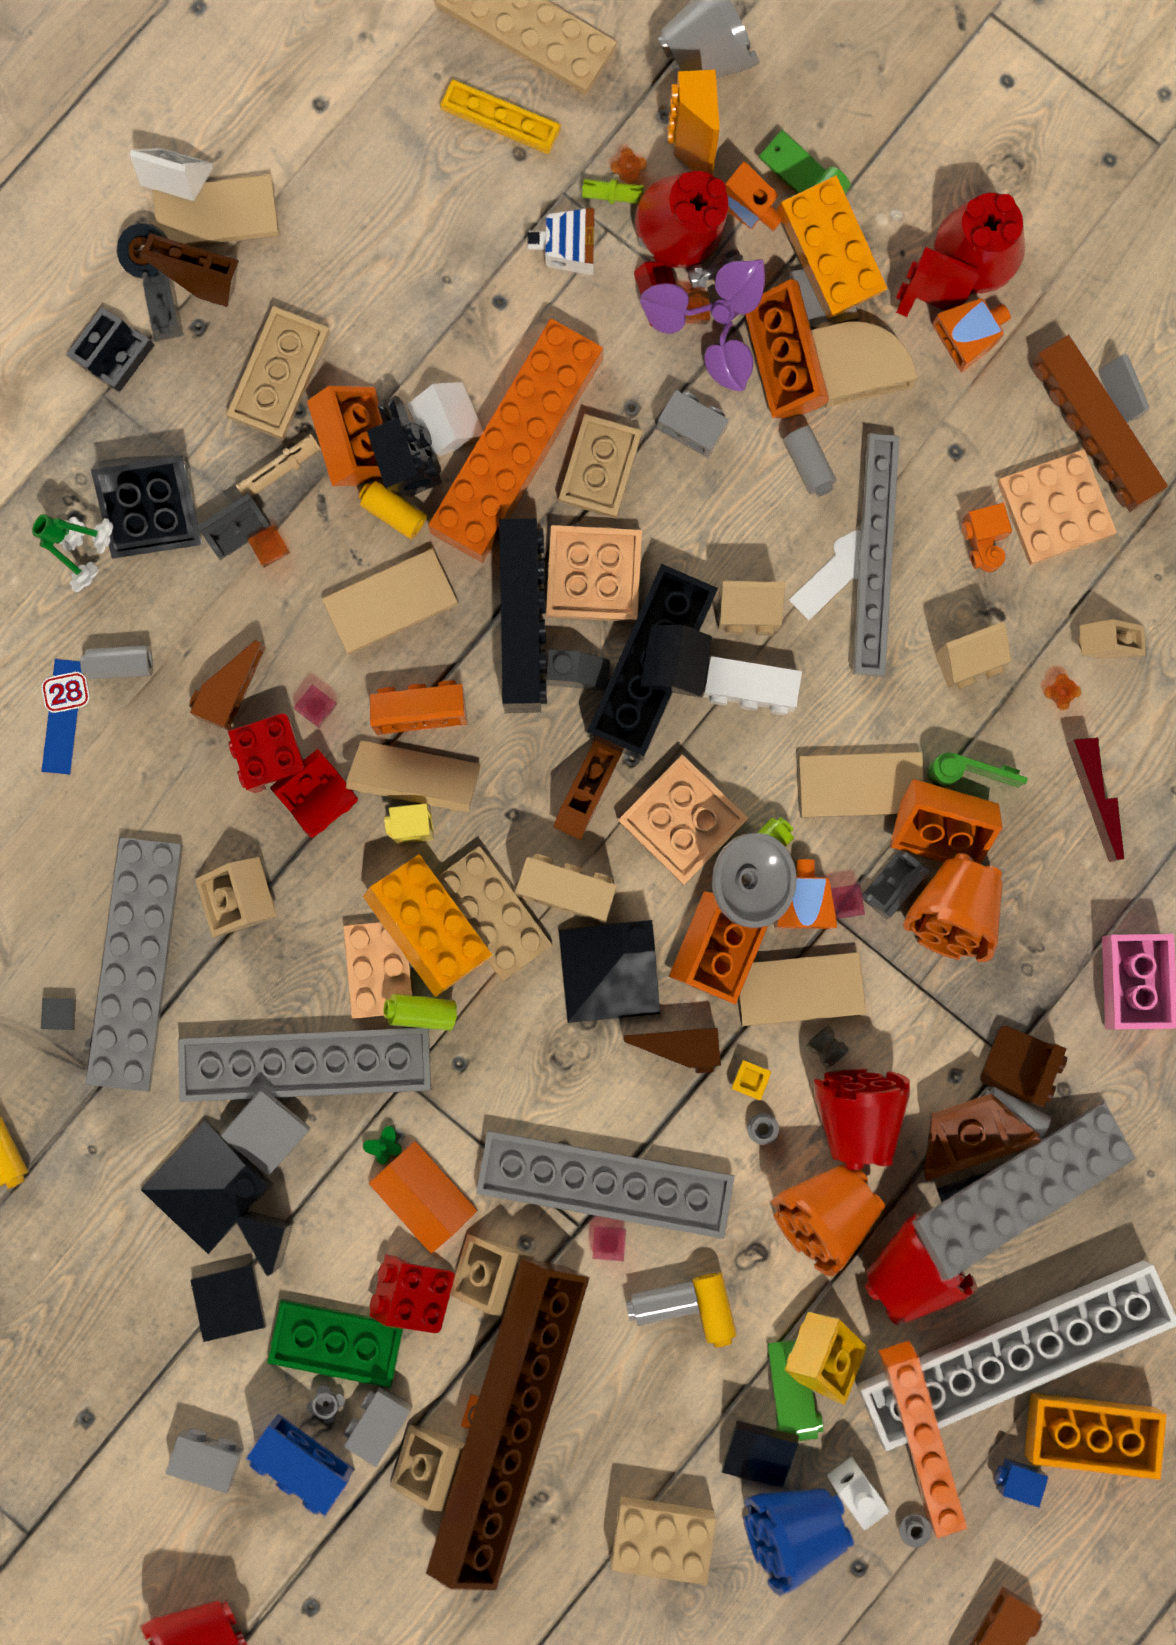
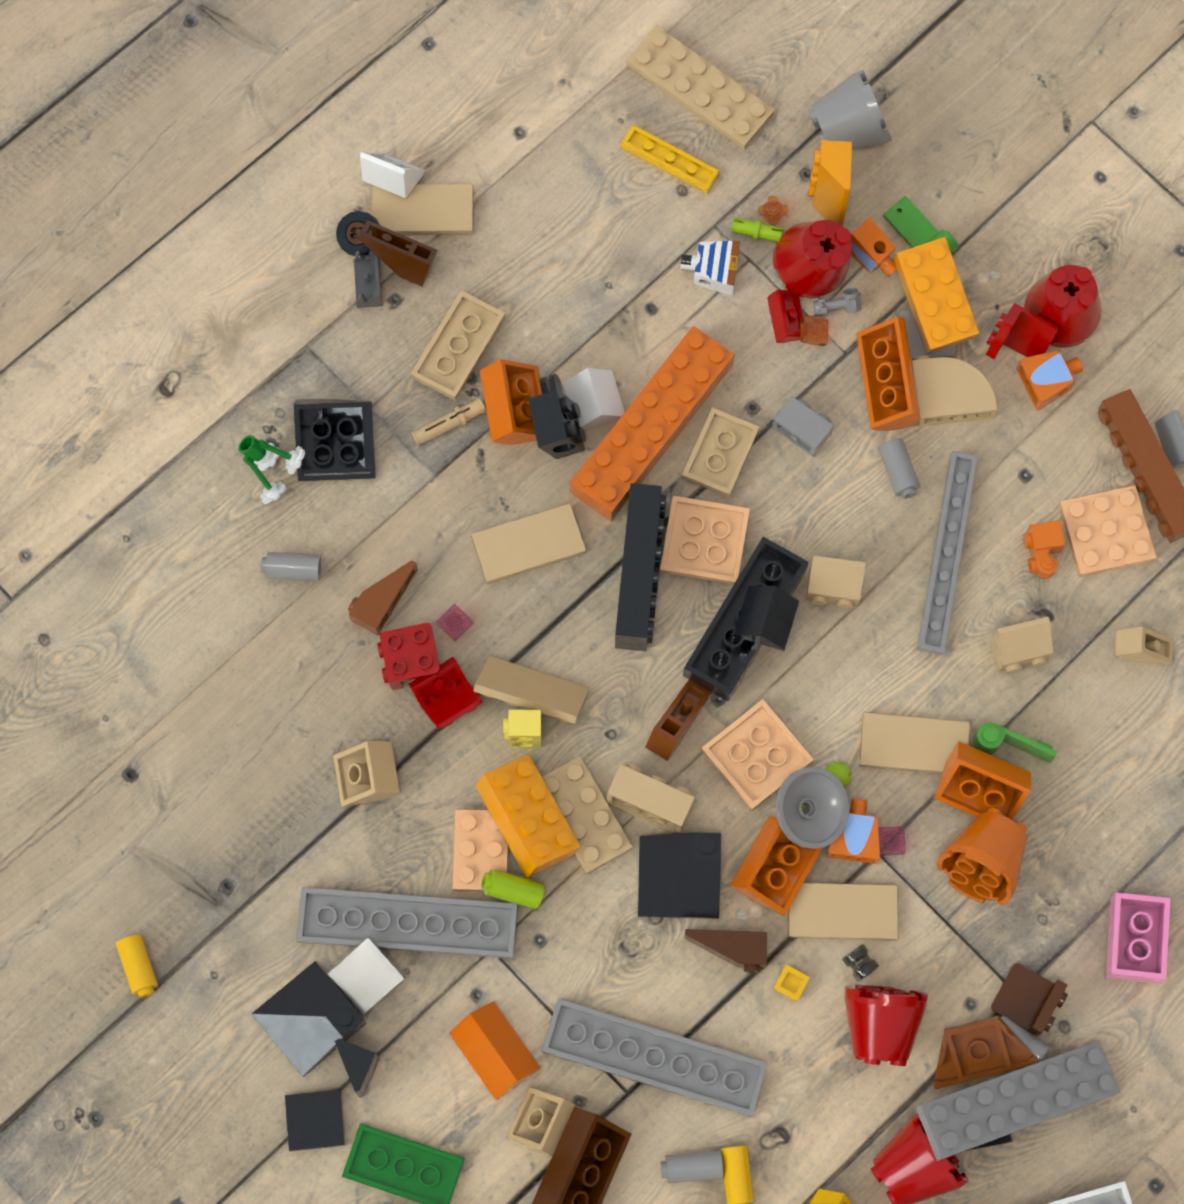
camera: 10 degrees right, 10 degrees down
(58, 1014) = (201, 855): dark grey tile -> none
(62, 698) = (239, 591): blue sticker -> none
(110, 349) = (319, 310): black slope -> none
(134, 964) = (272, 821): light grey plate -> none
(233, 526) = (405, 466): dark grey hinge -> none
(268, 546) = (431, 486): clear orange plate -> none
(384, 1146) = (466, 1002): green piece -> none
(392, 509) = (540, 467): yellow brick -> none
(411, 1295) = (474, 1132): red bracket -> none
(418, 708) = (542, 634): orange slope -> none
(577, 670) = (680, 618): dark grey slope -> none
(609, 1243) = (651, 1109): clear pink plate -> none
(741, 290) = (854, 318): medium lavender plant -> none
(752, 685) = (829, 648): white brick -> none
(772, 1133) = (797, 1018): light grey plate -> none
(828, 1216) = (844, 1104): orange cone -> none
(831, 577) = (907, 567): white sticker -> none
(894, 884) = (934, 831): dark grey hinge -> none
(1071, 691) = (1097, 693): clear orange plate -> none
(1105, 812) = (1122, 788): dark red slope -> none

